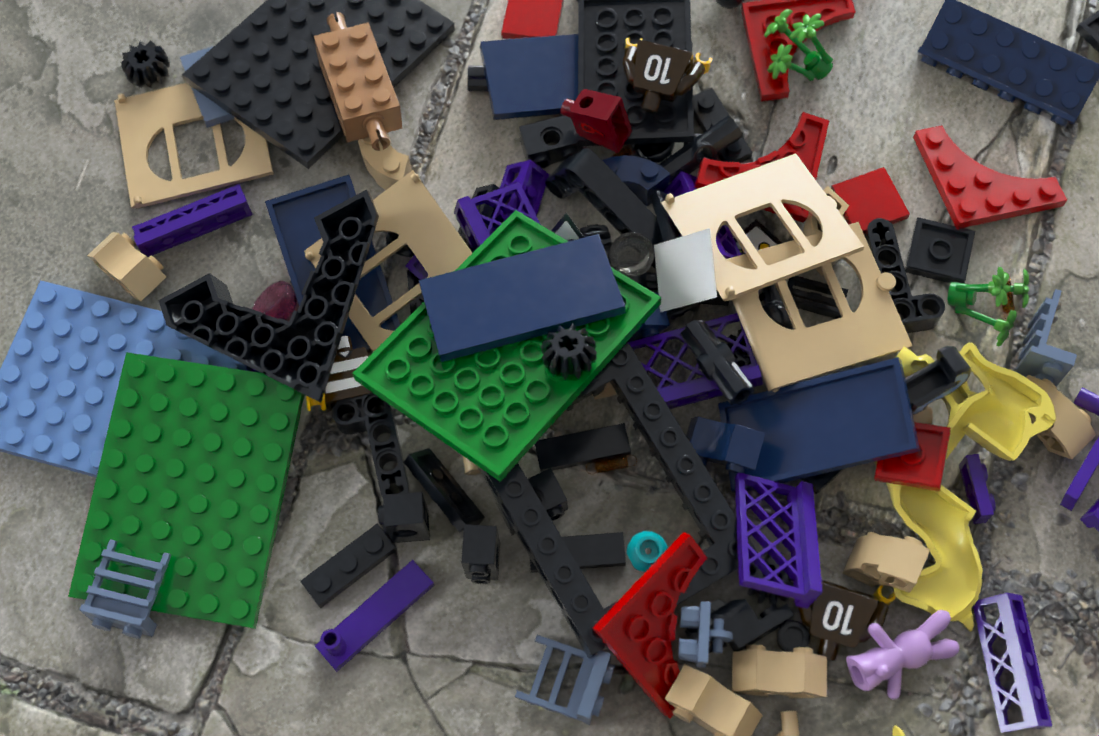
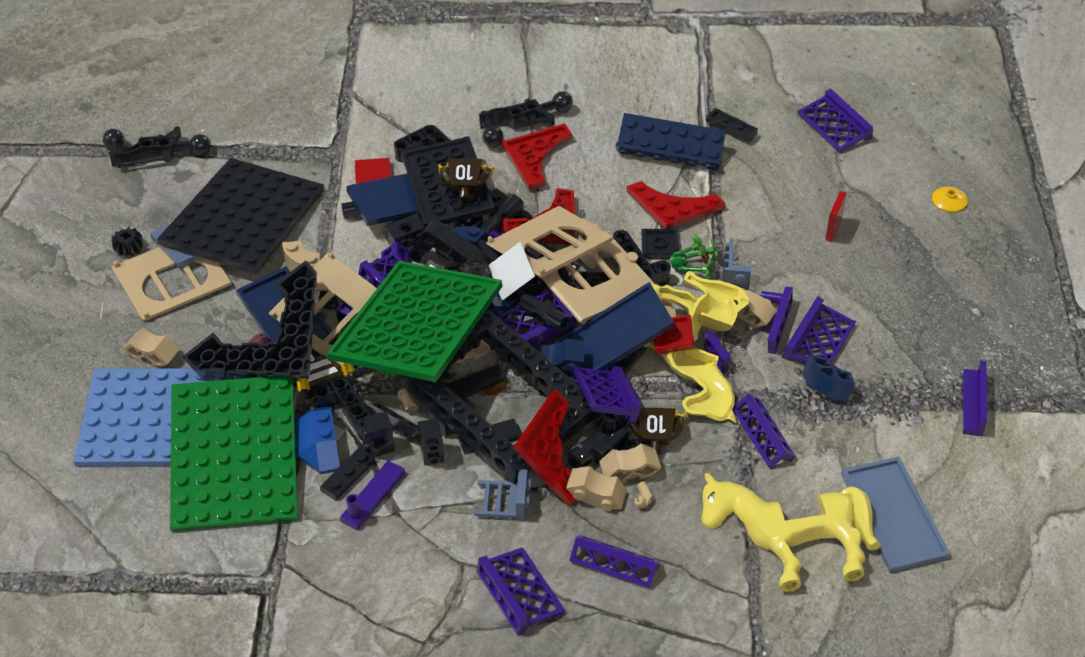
camera: 20 degrees left, 20 degrees down
(119, 610) = (210, 522): sand blue plate -> none
(191, 221) = (189, 317): dark purple fence -> none
(320, 490) = (317, 440): none -> blue wedge
(358, 82) = (276, 218): medium nougat brick -> none
(521, 297) = (417, 296): dark blue tile -> none
(569, 352) = (456, 310): black gear -> none
(599, 118) = (435, 205): dark red torso -> none
(637, 546) = (527, 406): teal plate -> none
(698, 649) = (580, 447): sand blue hips -> none
(816, 63) = (557, 164): plant -> none
(871, 198) = (613, 221): red tile -> none
(887, 561) = (676, 391): tan brick -> none
(907, 650) = (700, 437): lavender animal -> none
(937, 378) = (677, 290): black animal -> none

